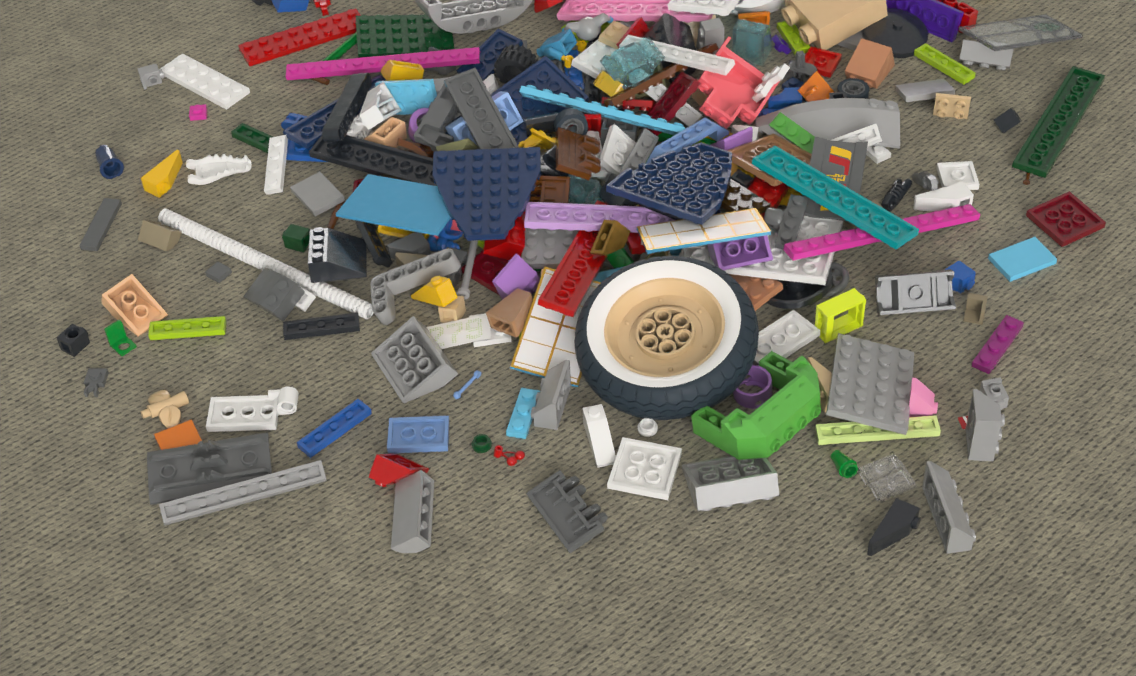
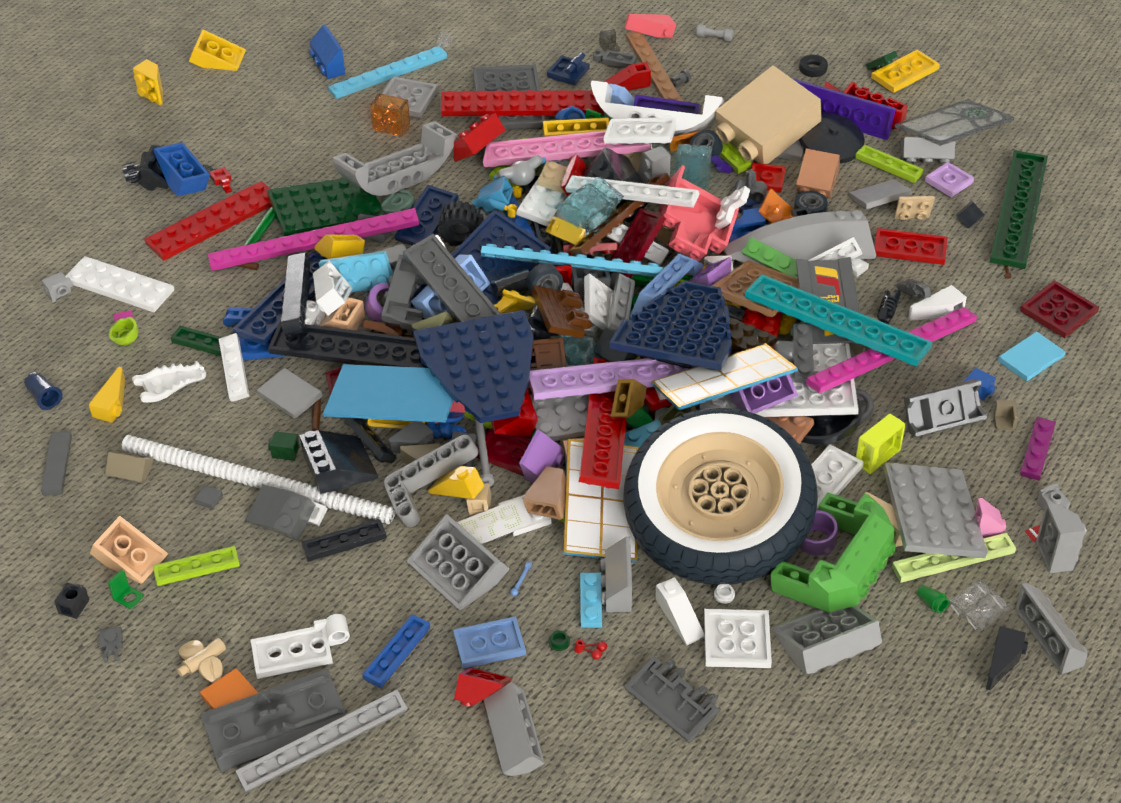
camera: 15 degrees left, 0 degrees up
(190, 123) = (124, 336): none -> lime helmet
(470, 40) = (398, 202): none -> sand green tile
(776, 22) = (708, 138): none -> wheel
(938, 141) = (911, 246): none -> red plate
(957, 172) = (941, 277): white plate -> none
(999, 85) = (949, 179): none -> lavender plate

